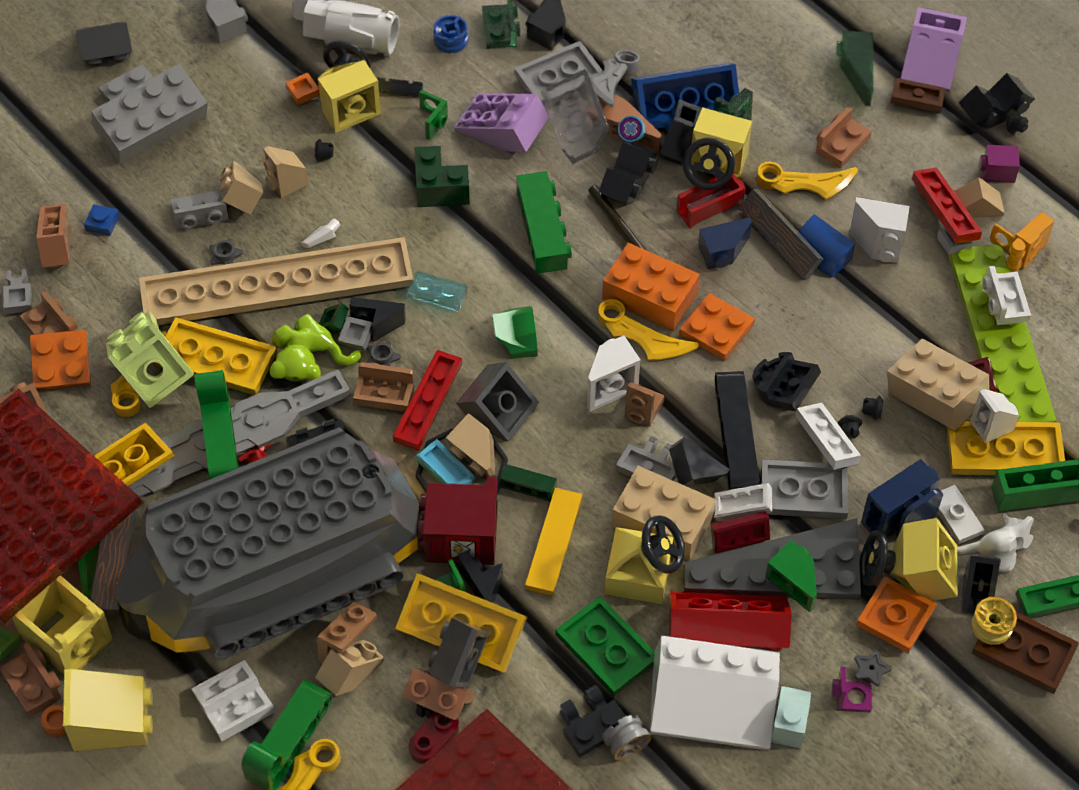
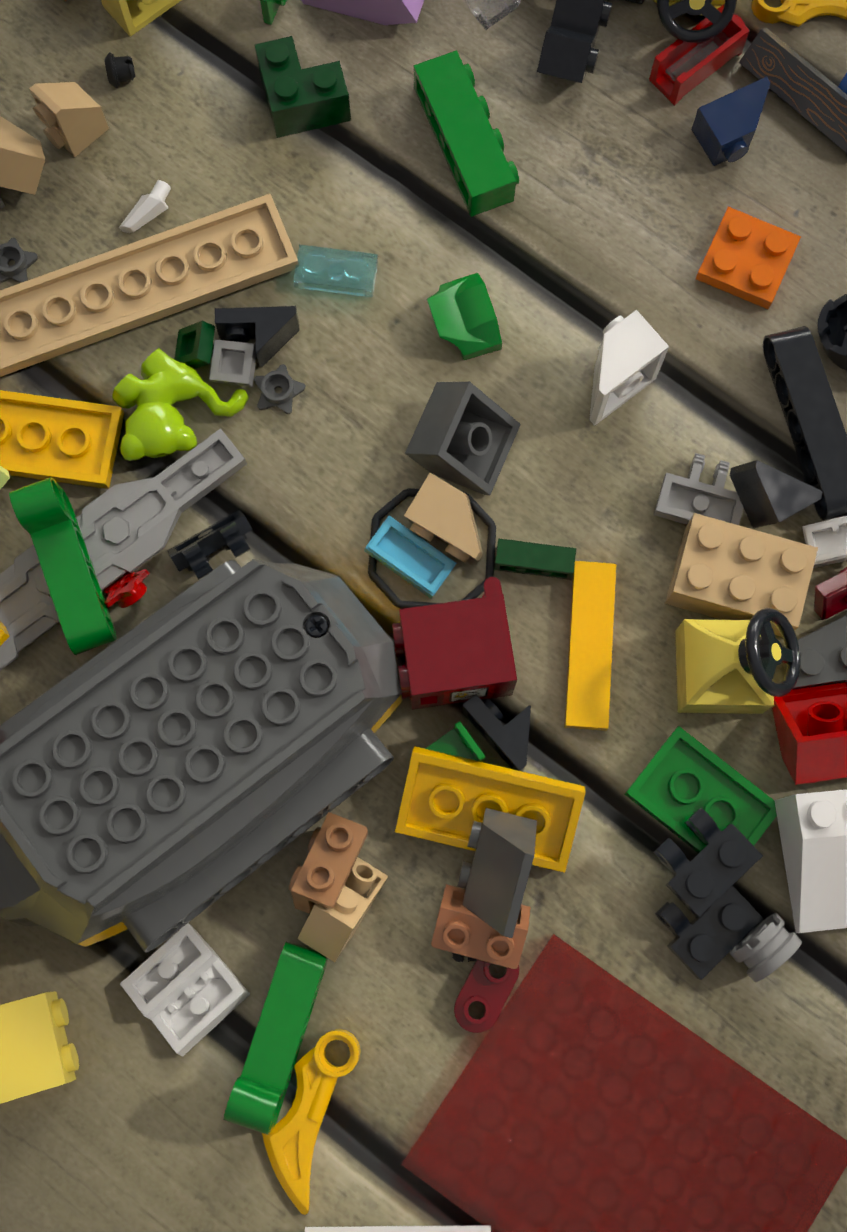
camera: 10 degrees left, 20 degrees up
(384, 387) = (293, 444): medium nougat bracket -> none
(427, 400) = (361, 452): red plate -> none
(602, 680) = (714, 869): none -> black plate
(615, 218) = (576, 117): dark brown bar -> none
(642, 404) = (673, 404): medium nougat bracket -> none
(651, 286) = (644, 211): orange brick -> none
(653, 343) = (665, 301): yellow piece -> none

